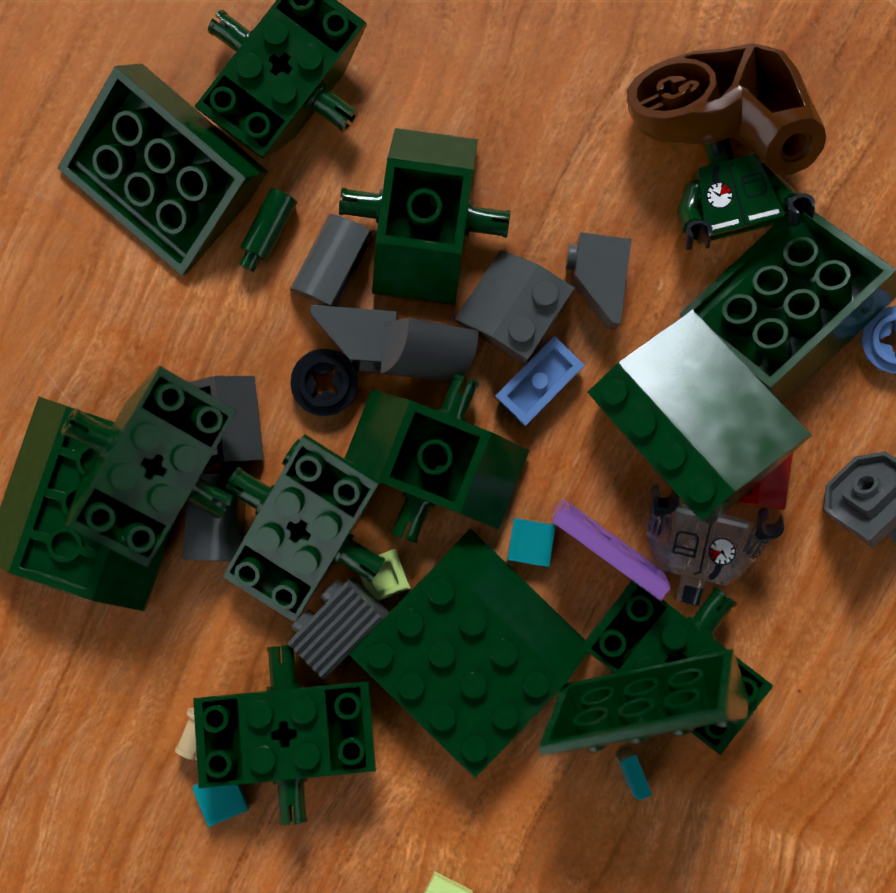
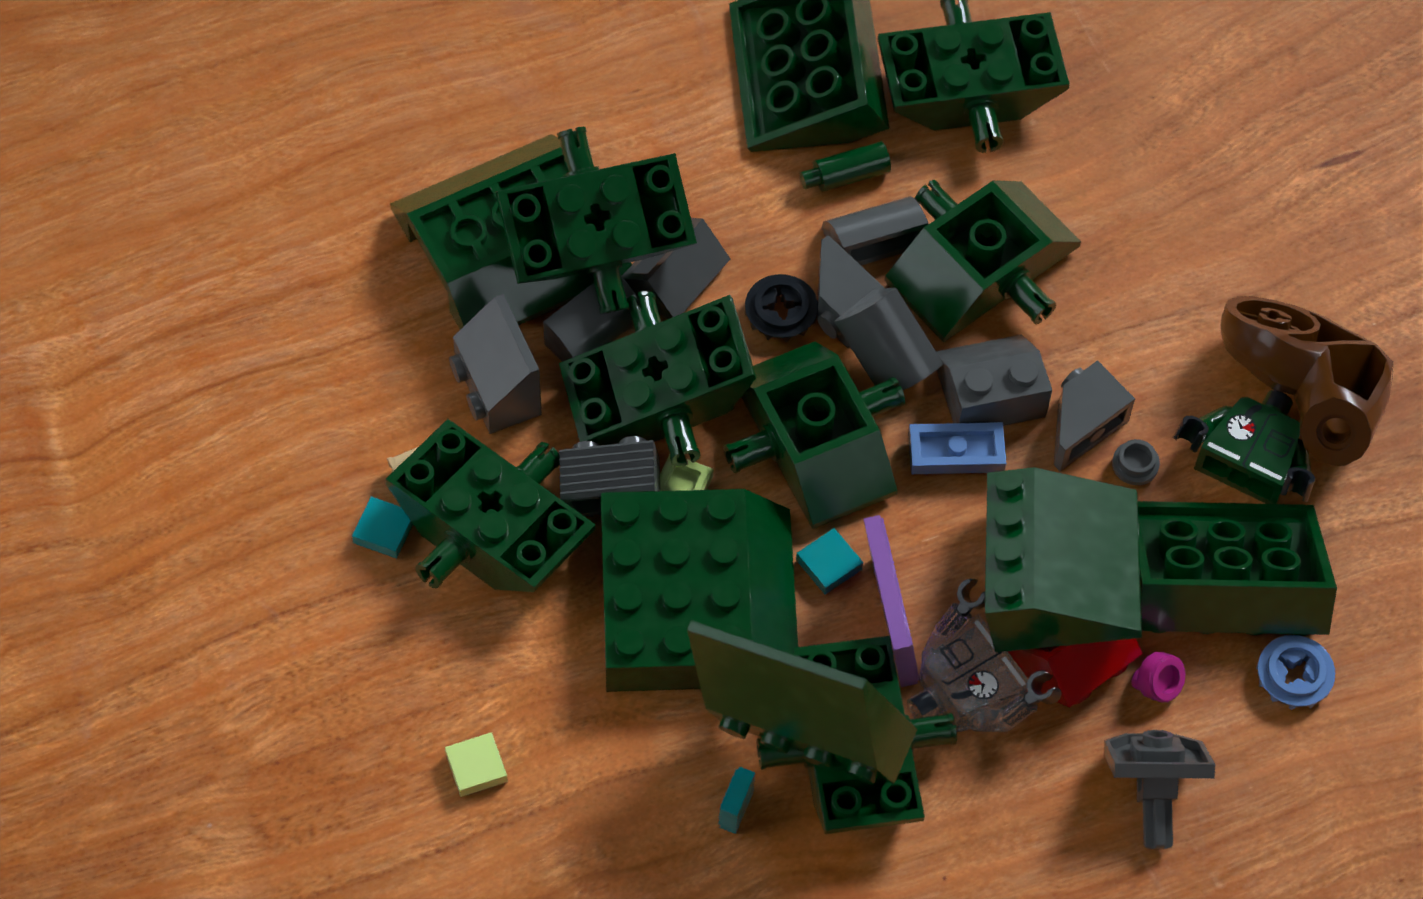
camera: 45 degrees right, 25 degrees down
(184, 620) = (497, 368): none -> dark grey slope
(662, 279) = (1136, 462): none -> dark grey plate
(820, 424) = (1160, 677): none -> dark pink tile

